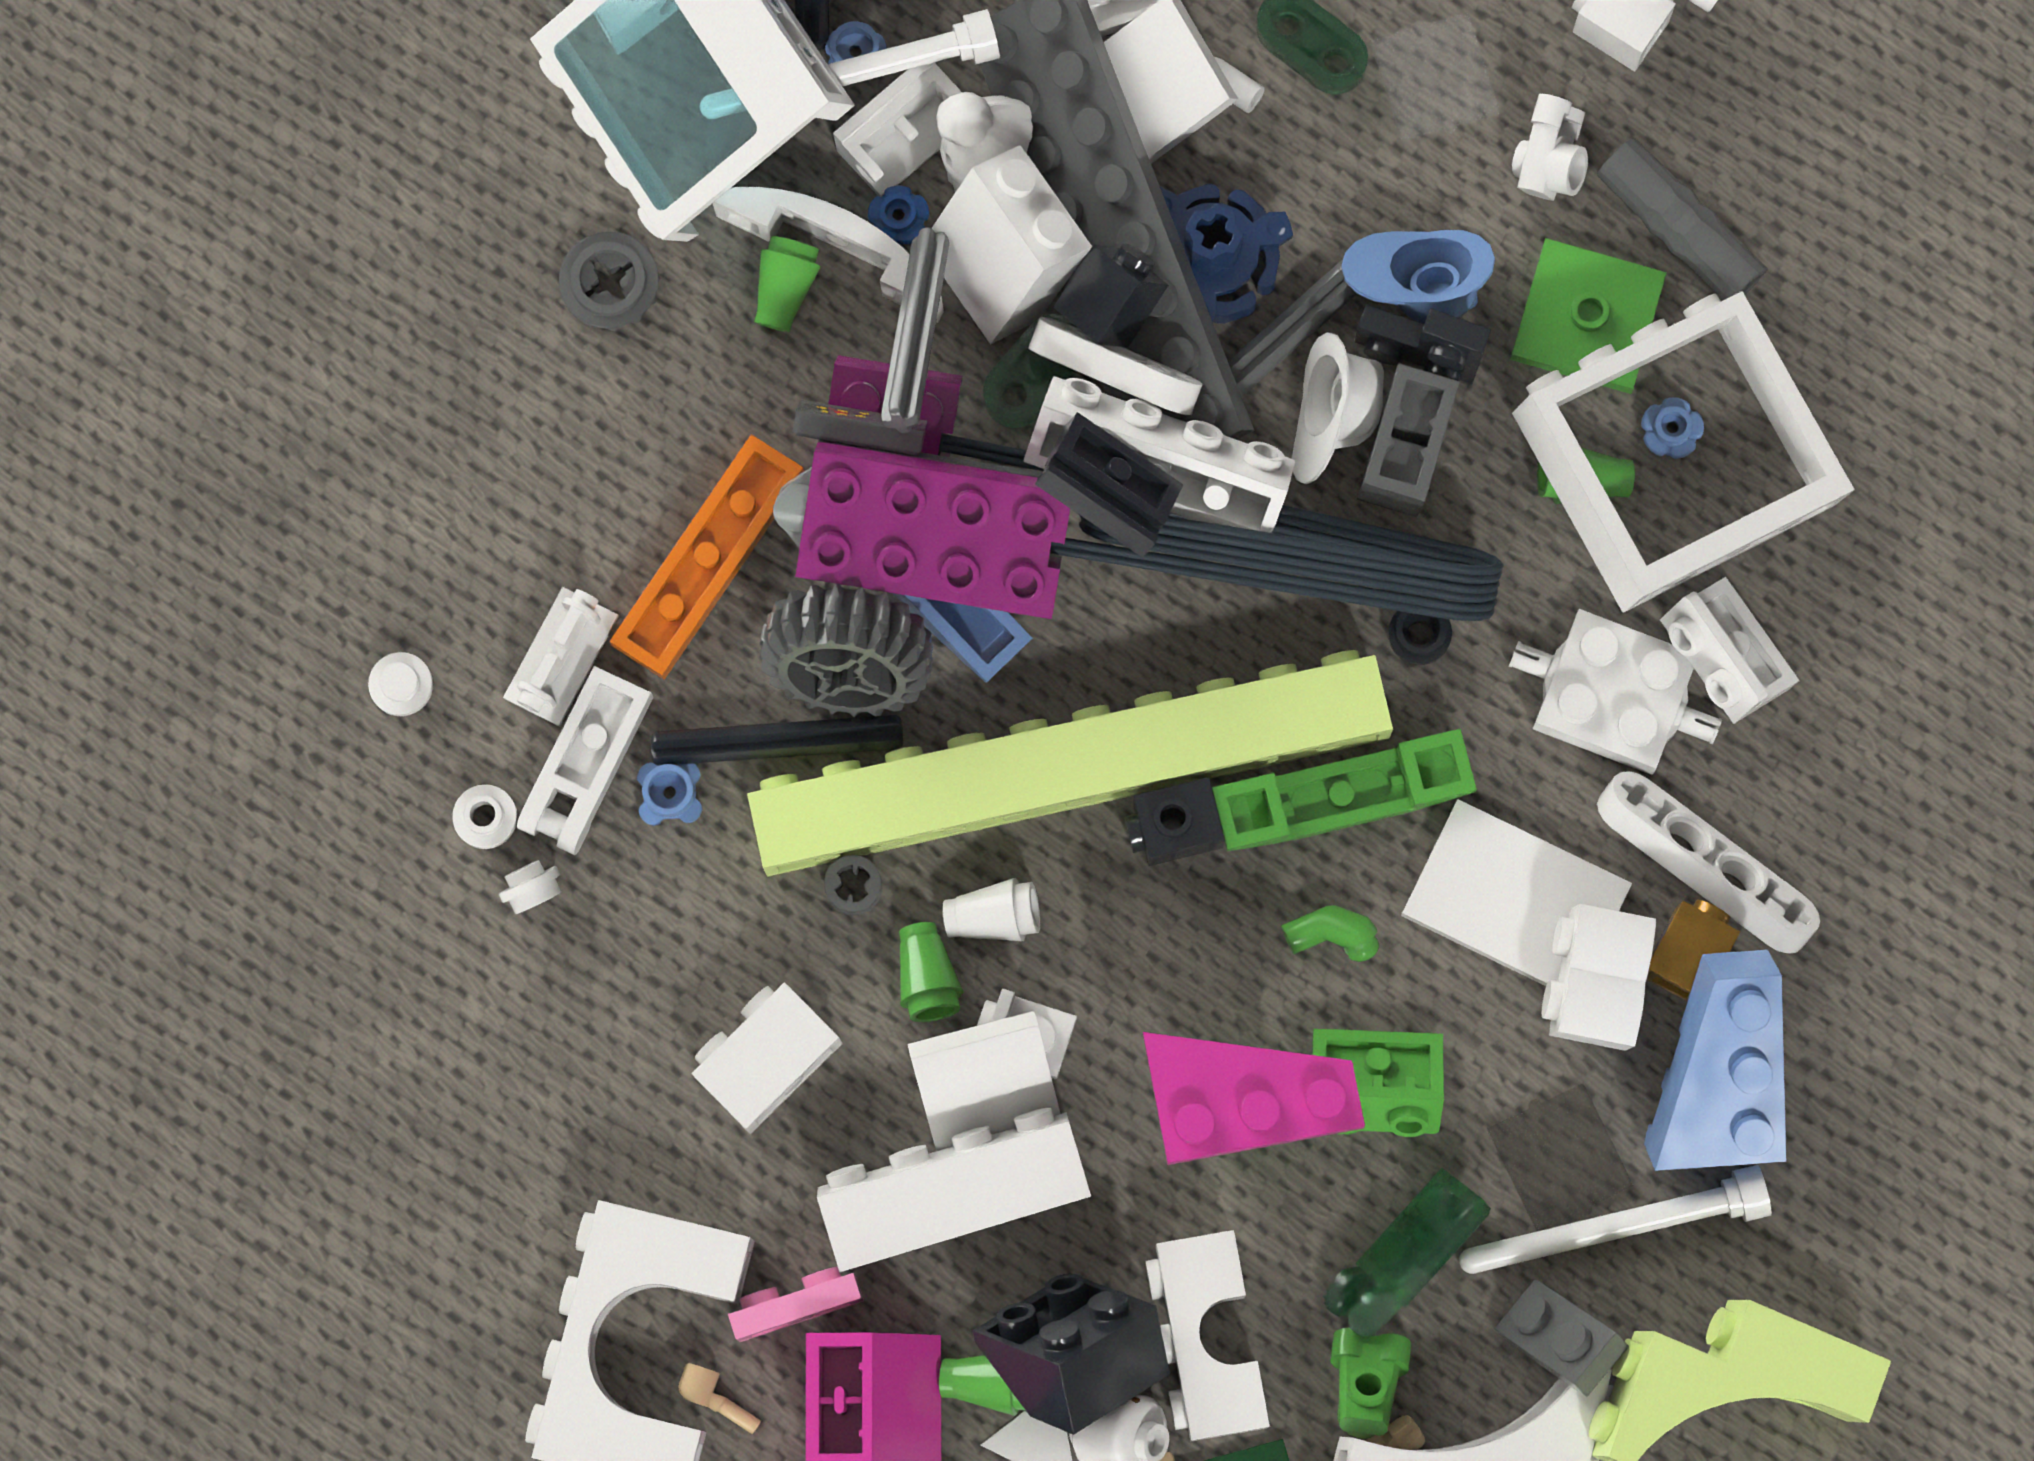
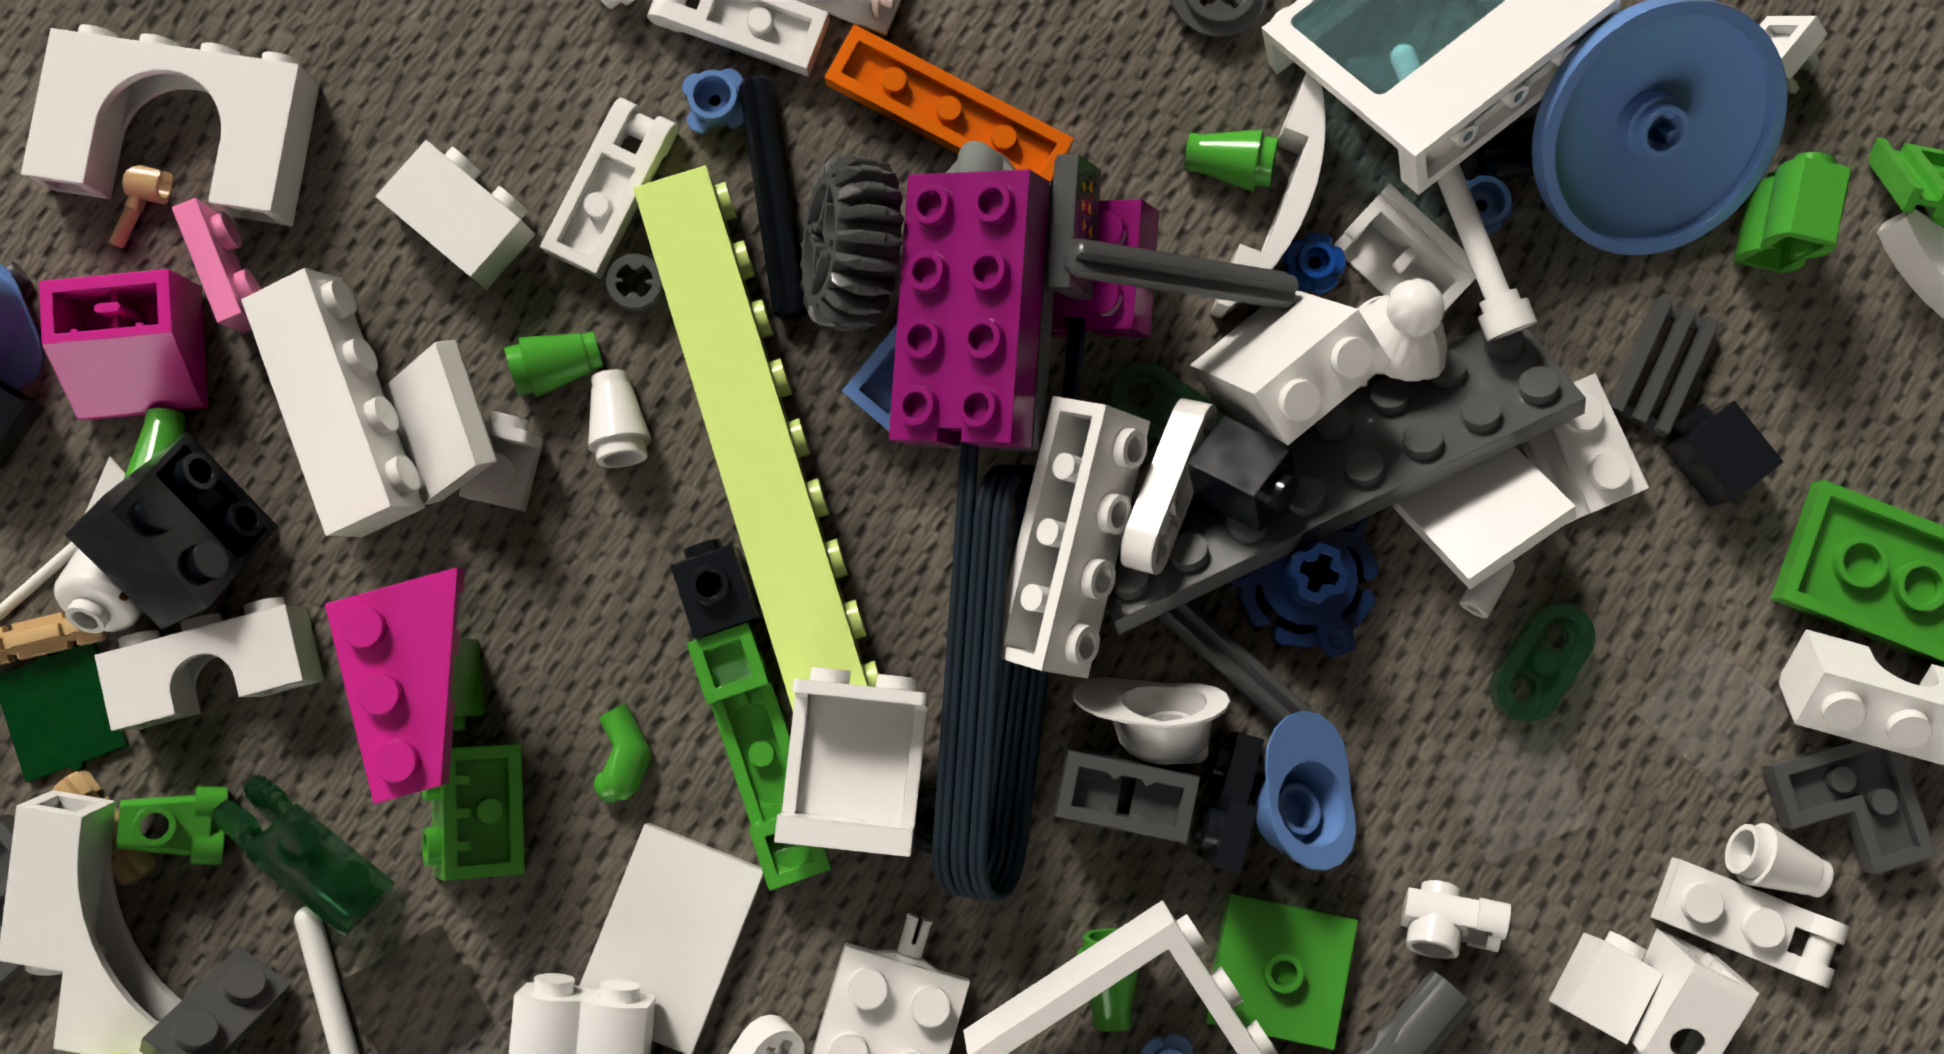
camera: 80 degrees right, 5 degrees up
(753, 905) = (602, 193): none -> white plate
(1109, 484) = (1025, 481): black plate -> none
(1358, 687) = (854, 764): none -> white panel

